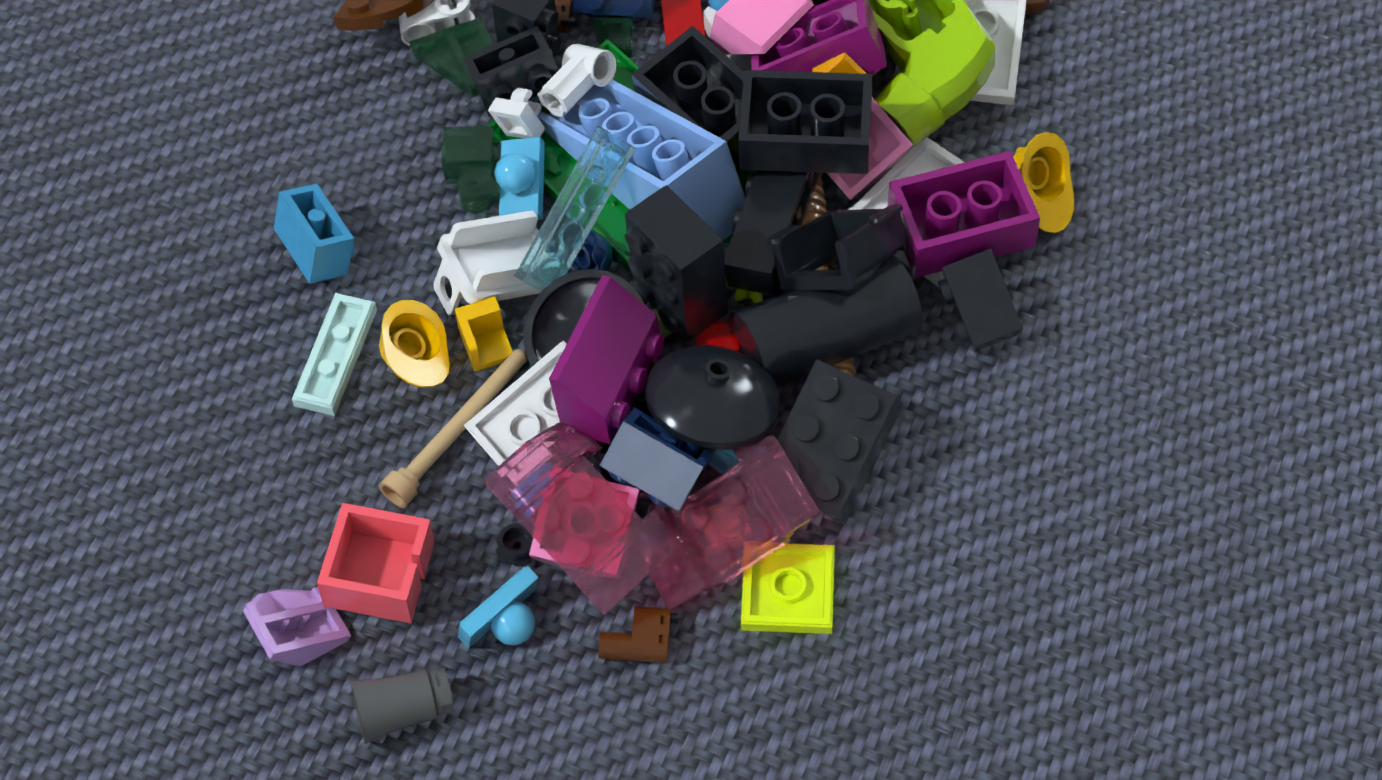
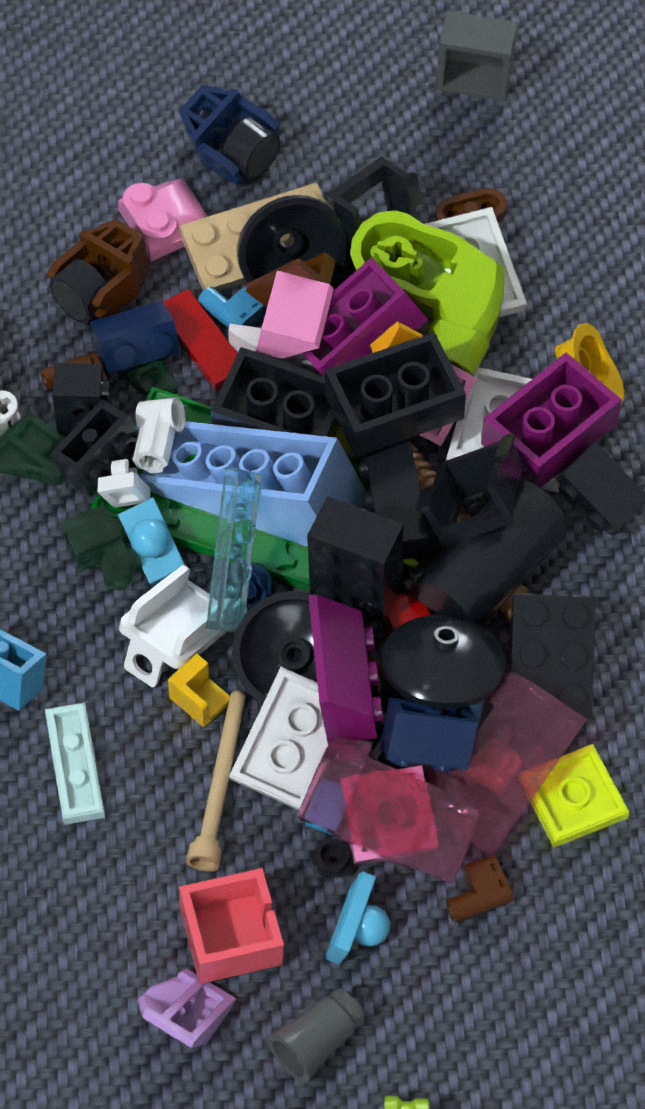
camera: 30 degrees left, 0 degrees up
(414, 343) = (148, 726): yellow piece -> none

